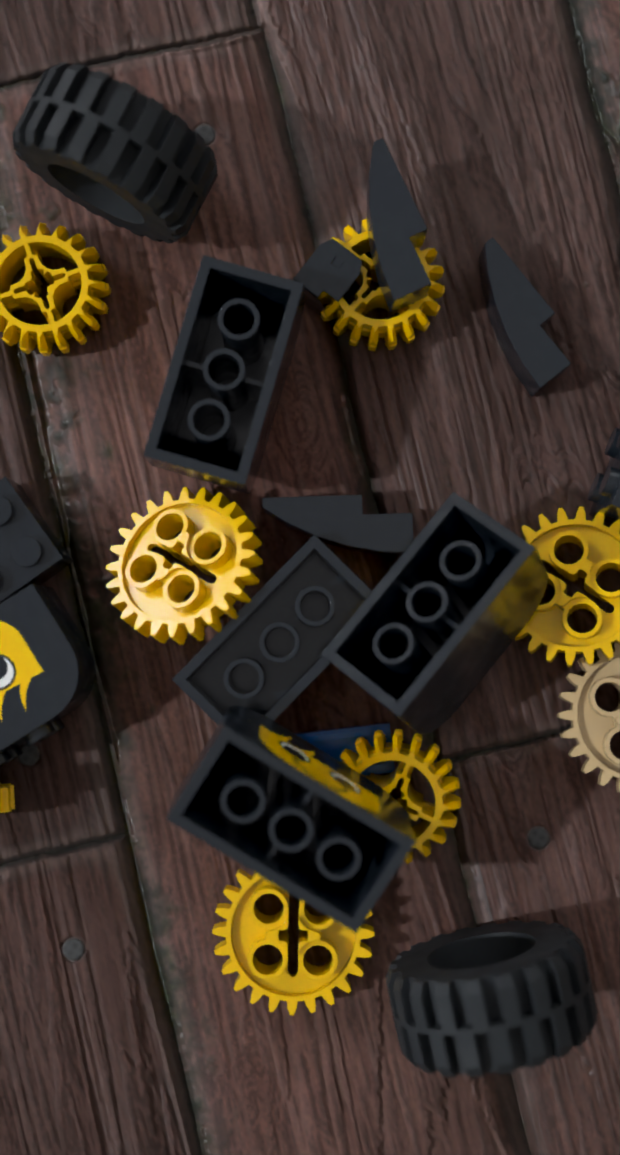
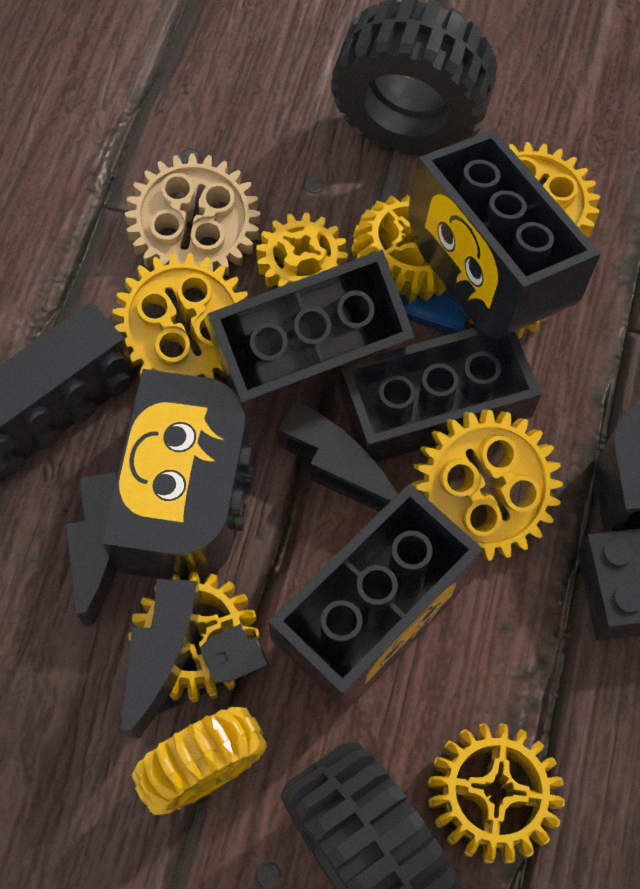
camera: 150 degrees left, 20 degrees down
(306, 169) = (198, 760): none -> yellow gear
(476, 409) = (180, 479): none -> black brick
(501, 753) = (299, 250): none -> yellow gear

